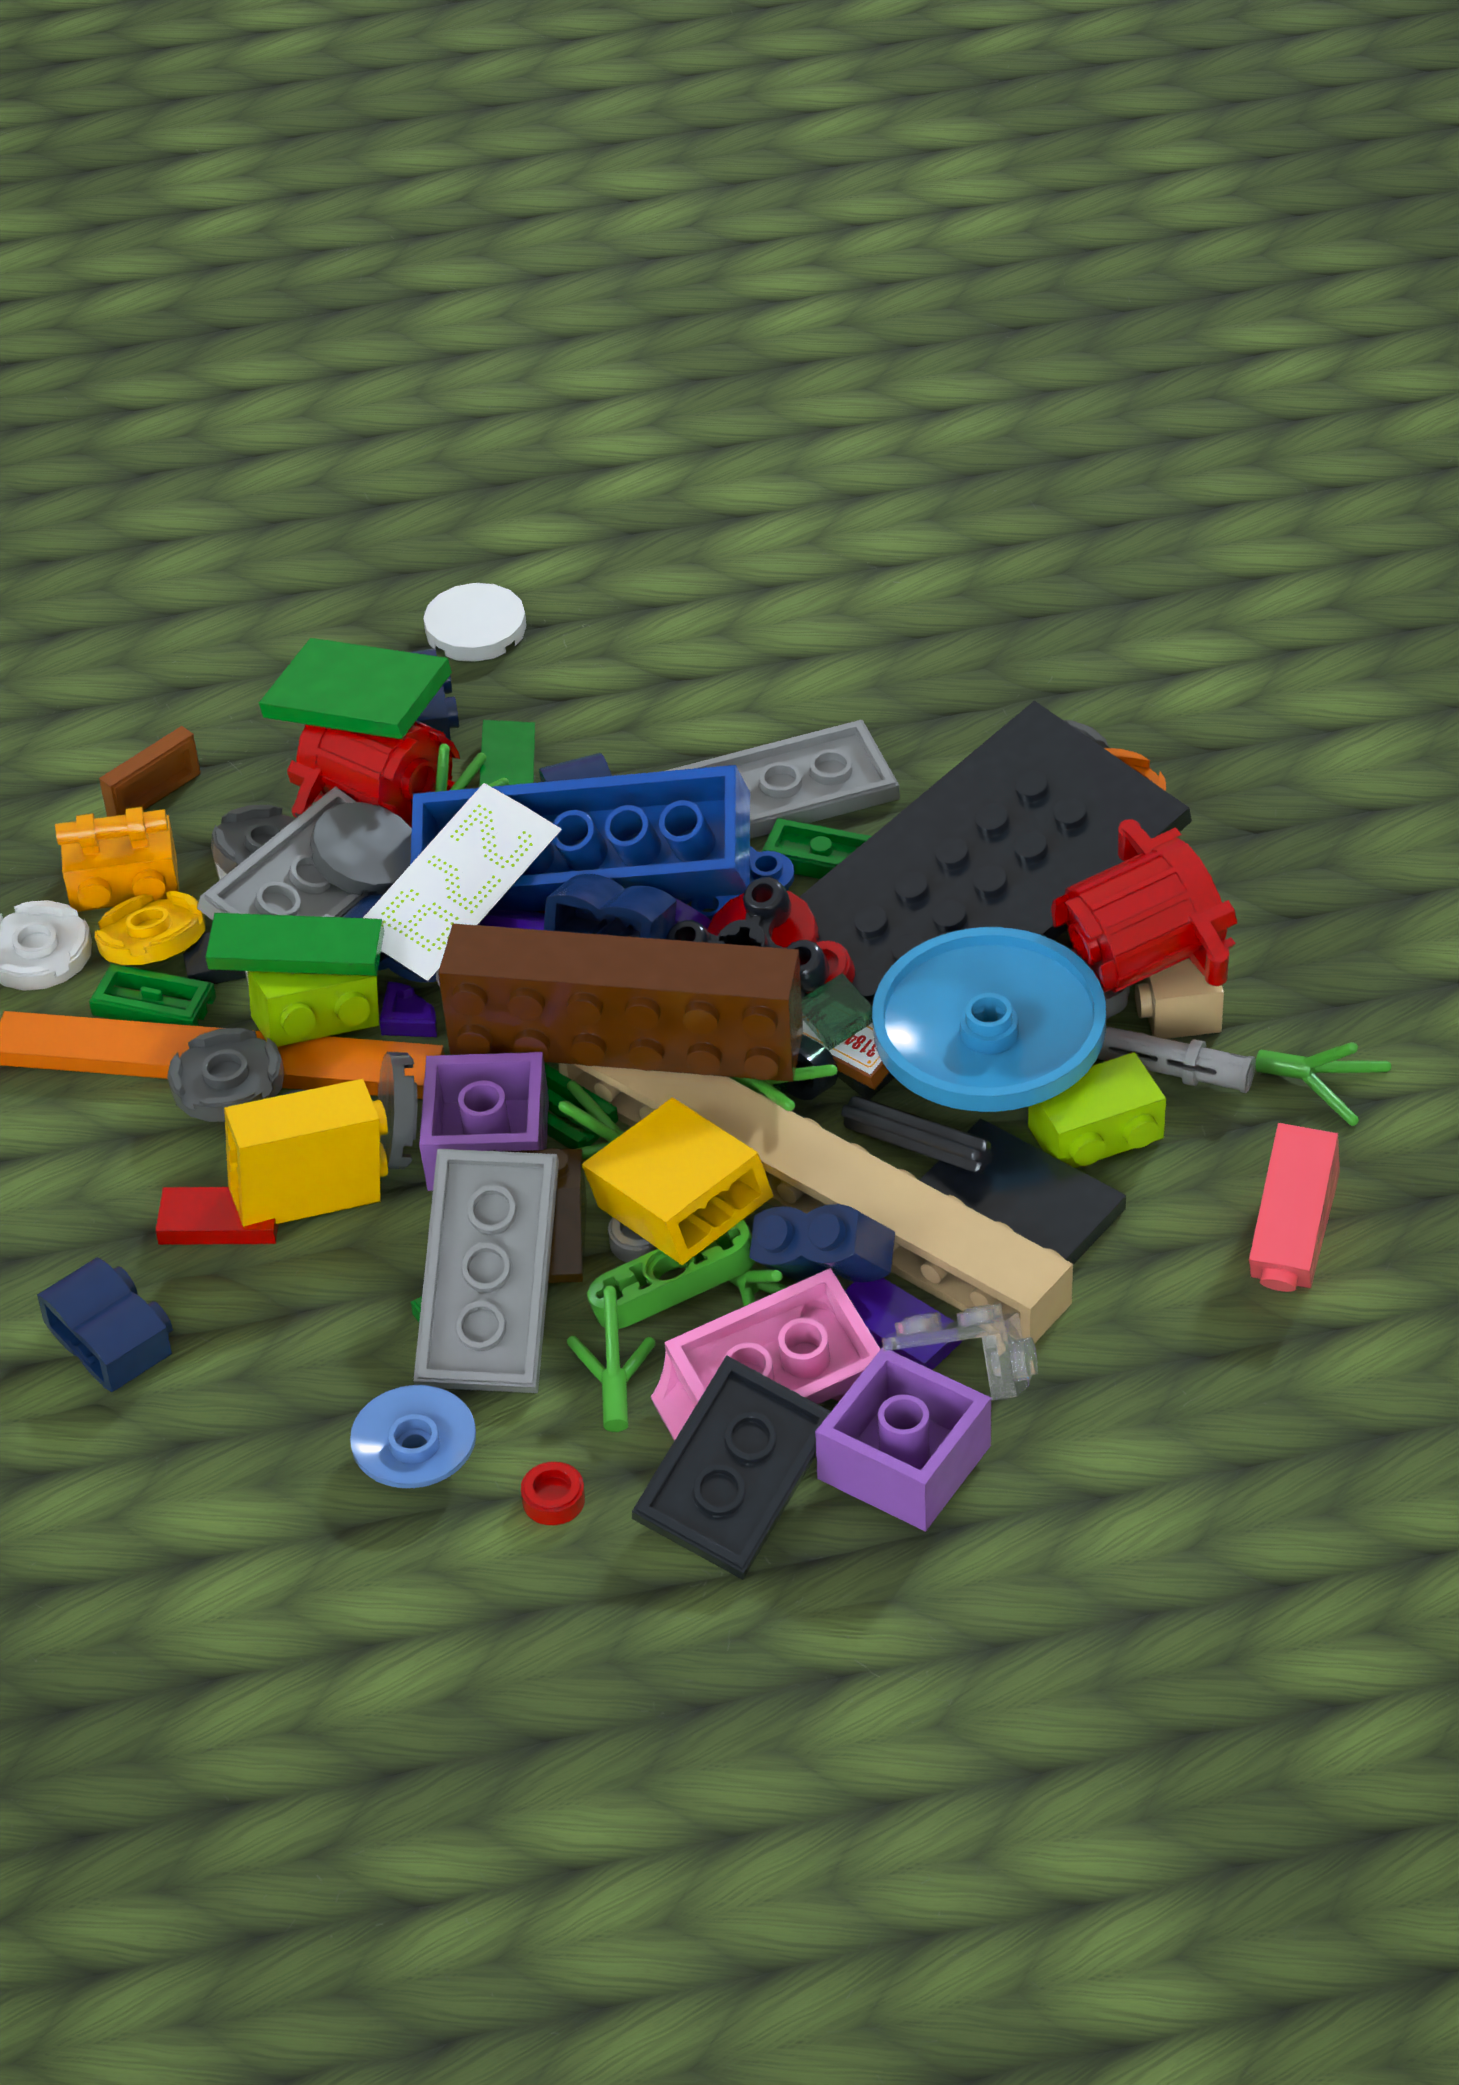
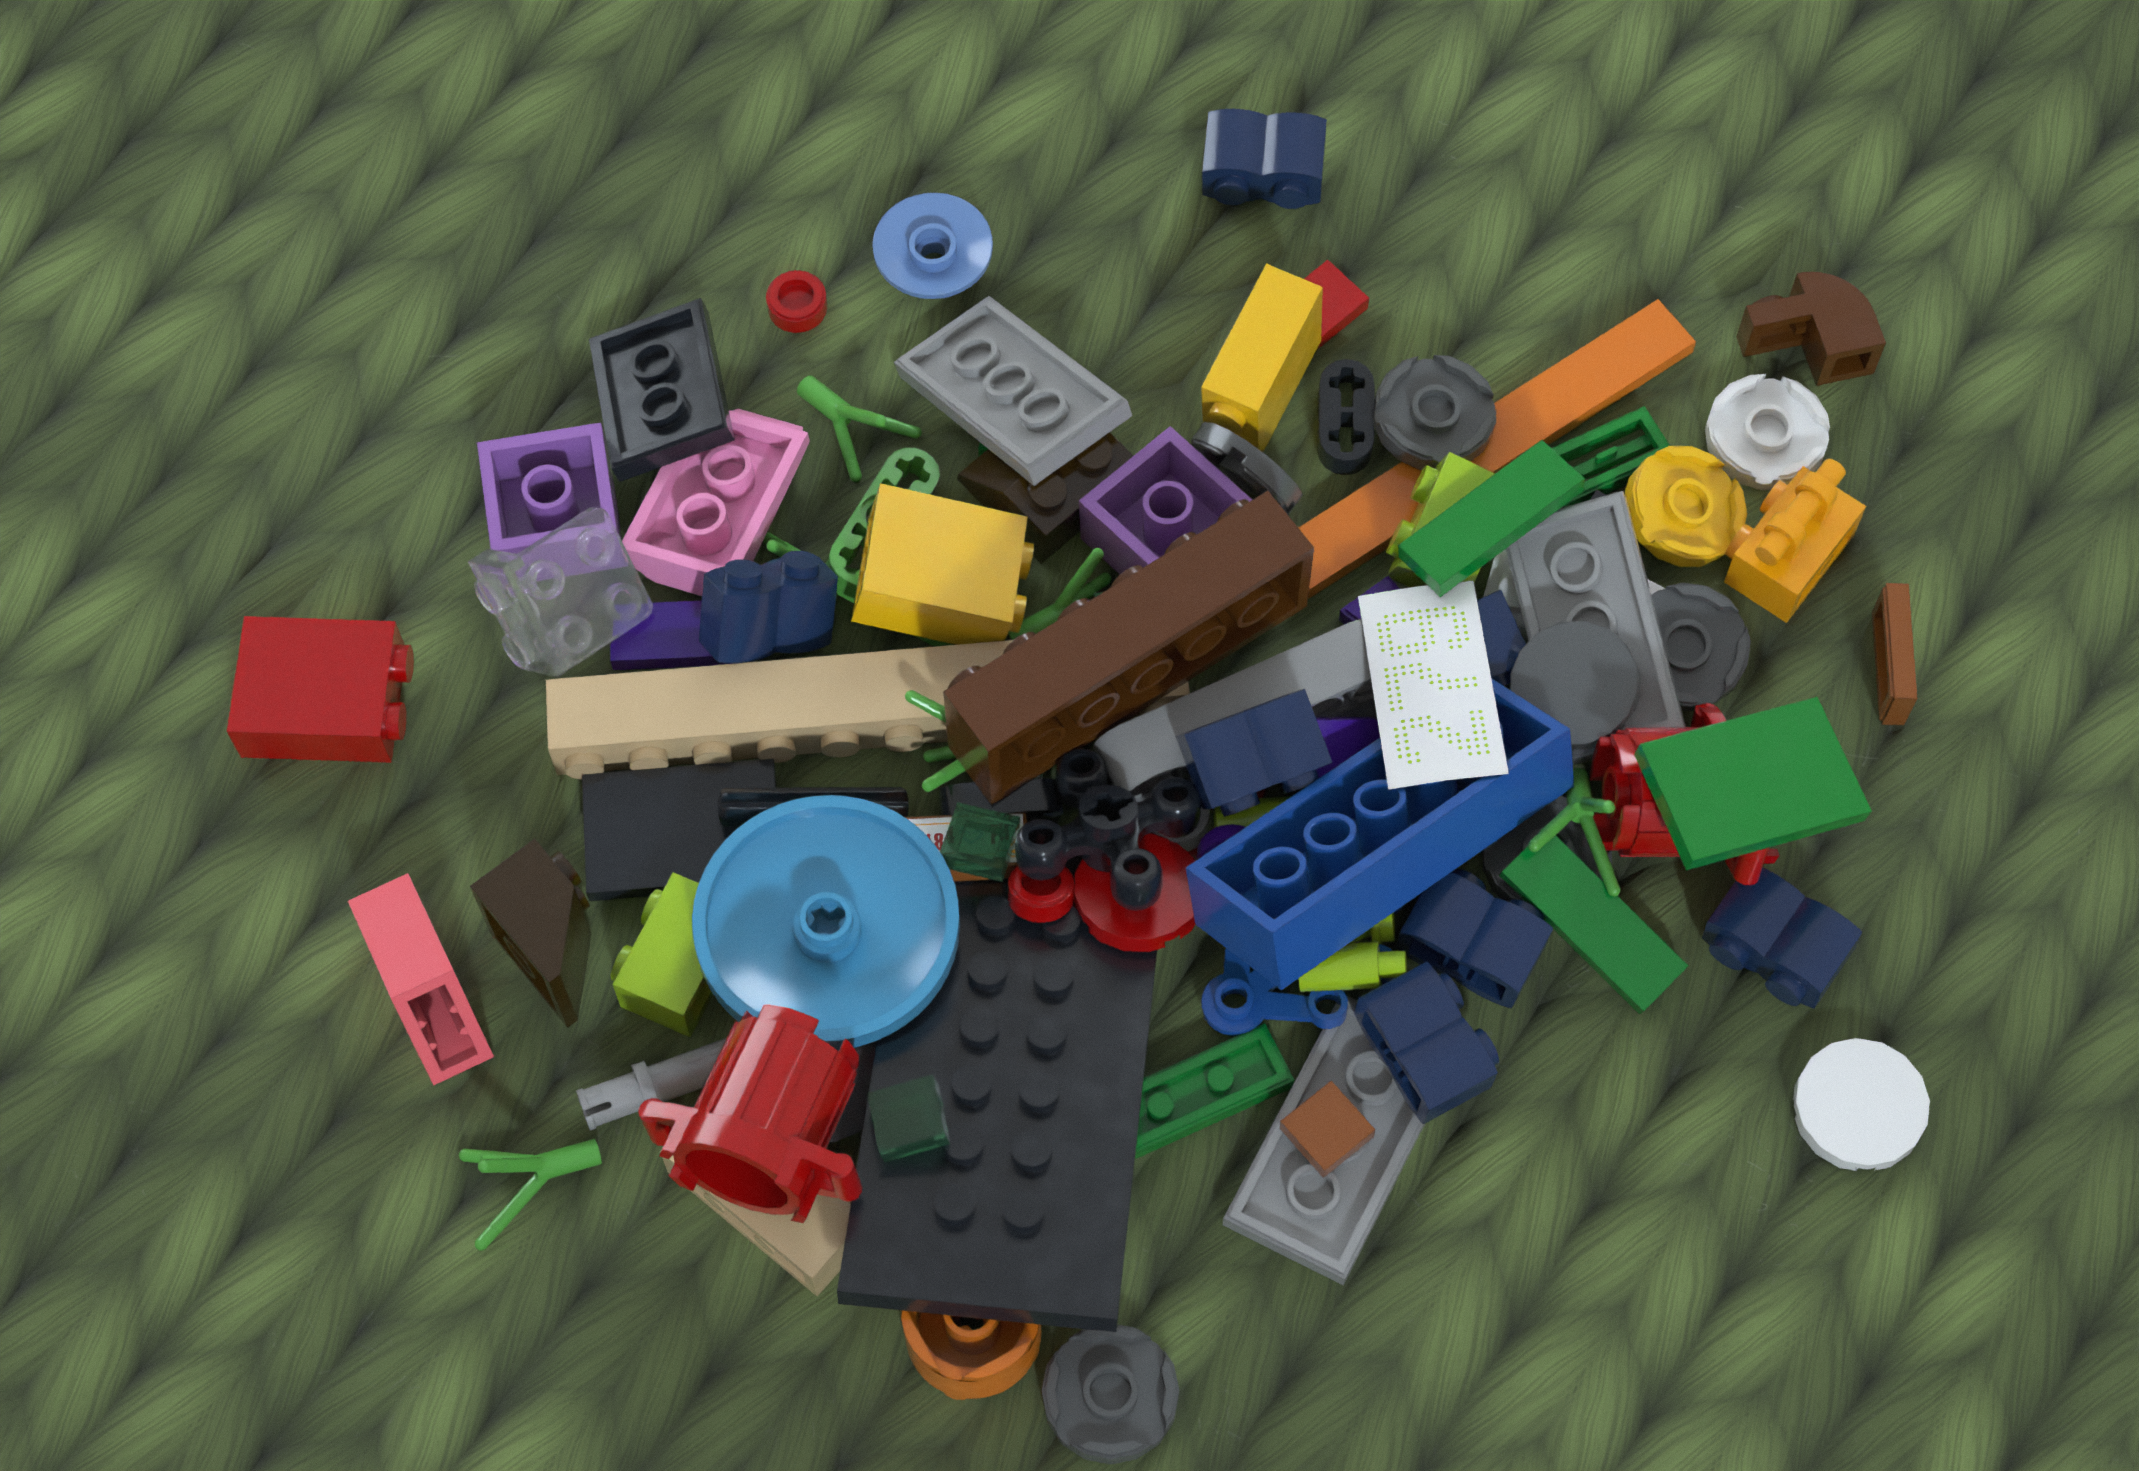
camera: 135 degrees right, 20 degrees up
(686, 742) = (1427, 1041): none -> dark blue brick
(790, 772) = (1327, 1129): none -> dark orange tile
(1051, 868) = (908, 1118): none -> clear green tile
(1180, 1162) = (540, 923): none -> dark brown slope
(1204, 1450) = (319, 689): none -> red brick

